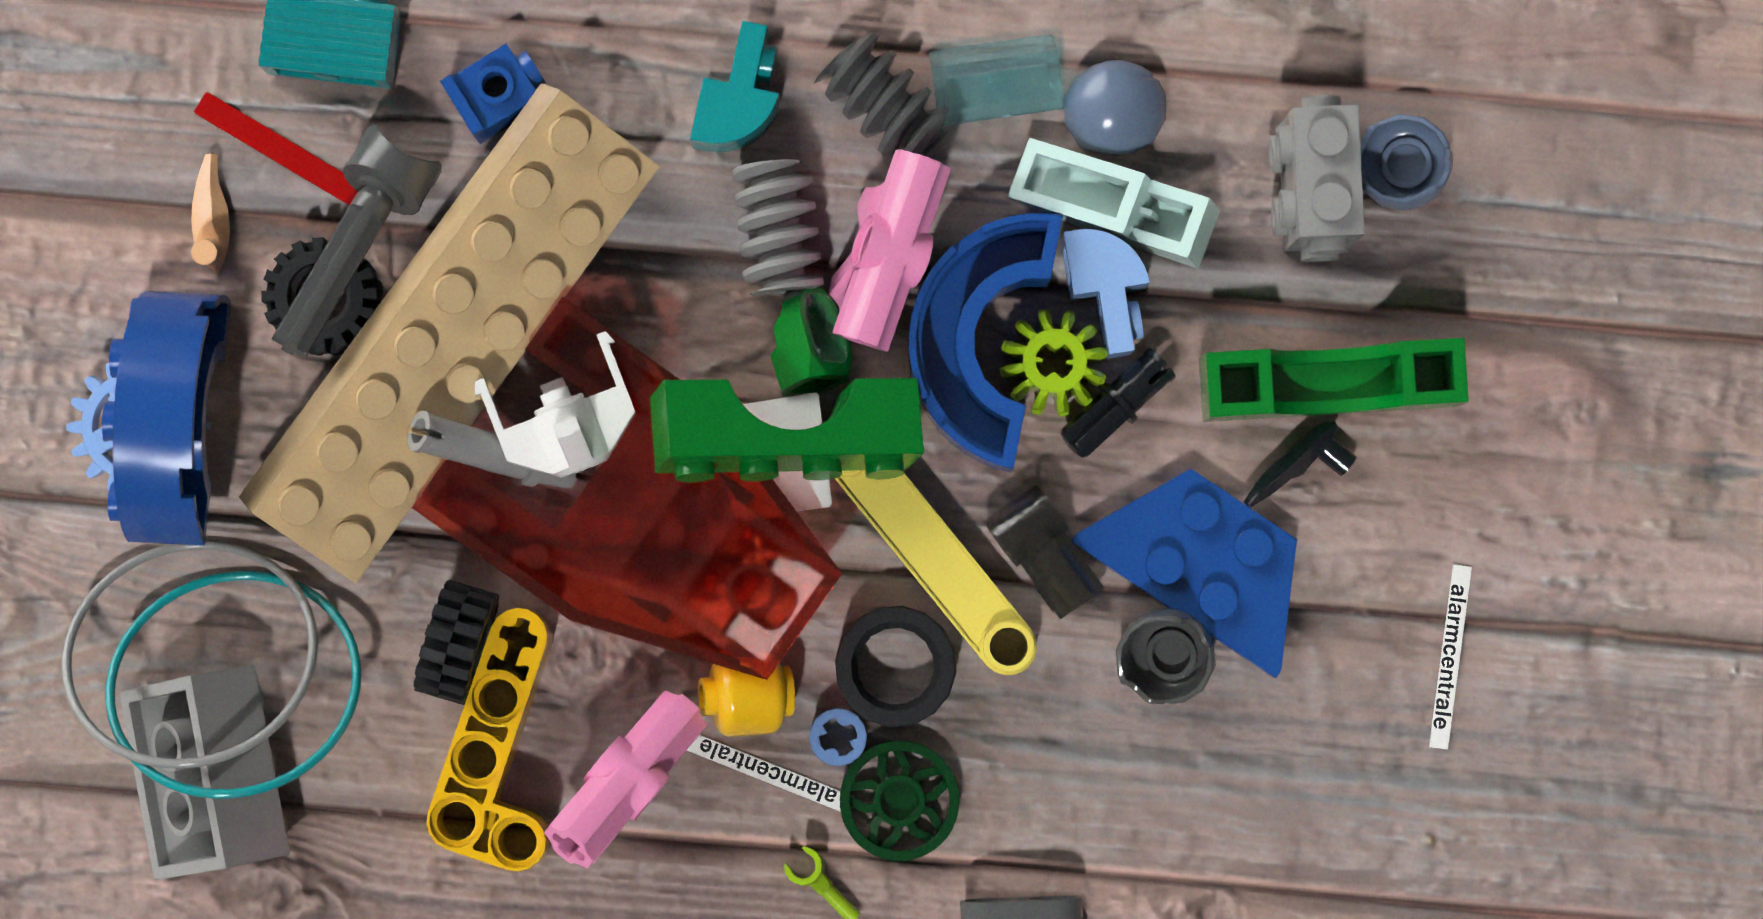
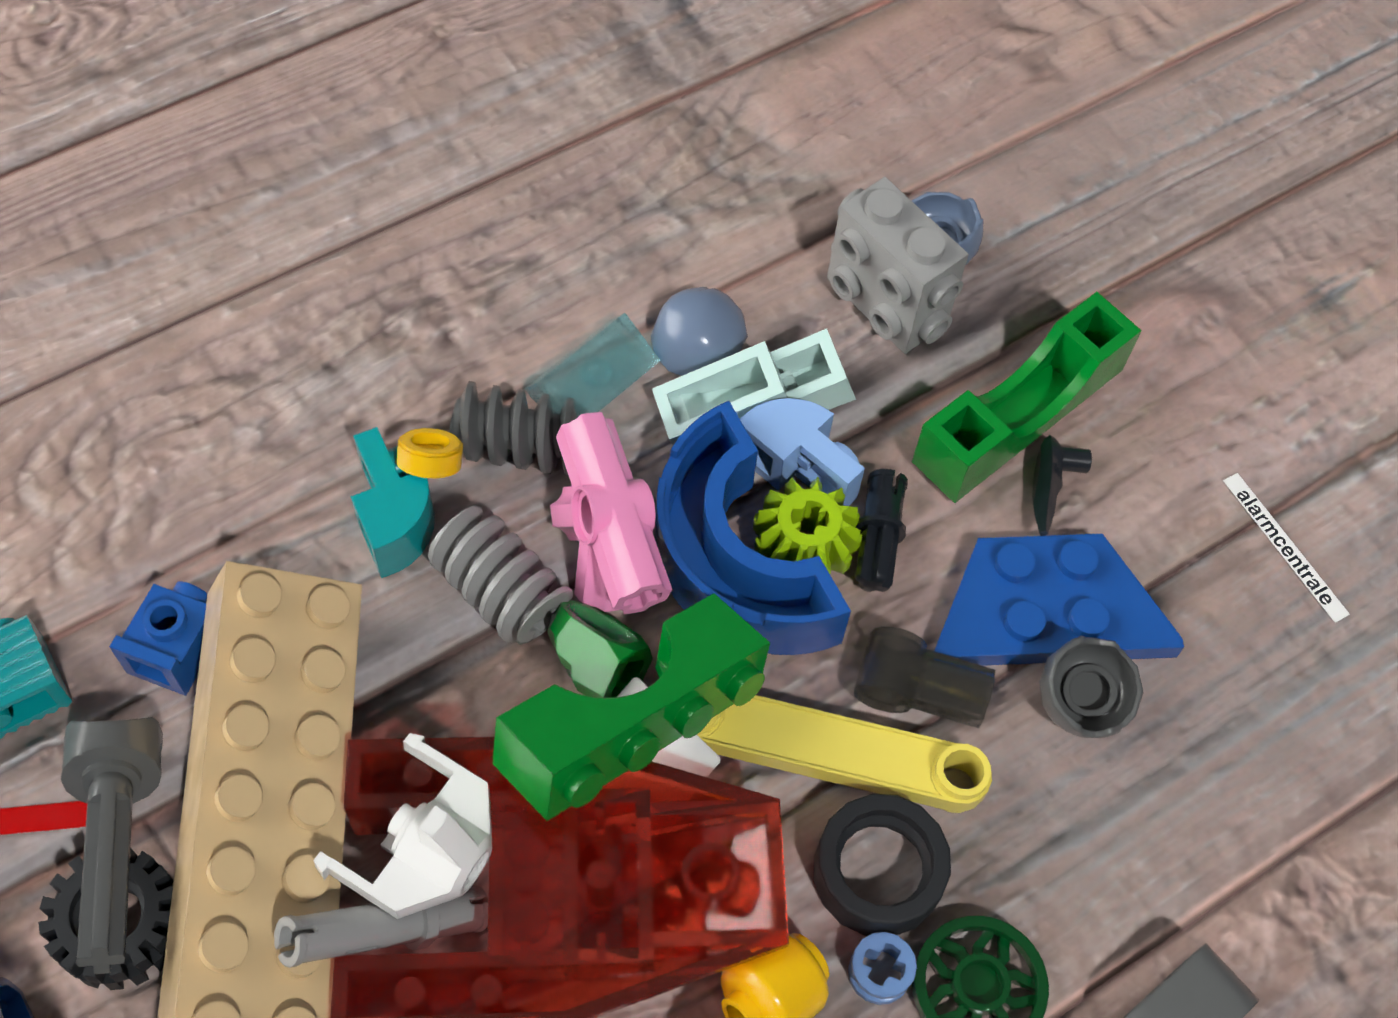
camera: 40 degrees left, 25 degrees down
(791, 83) = (429, 453): none -> yellow tile

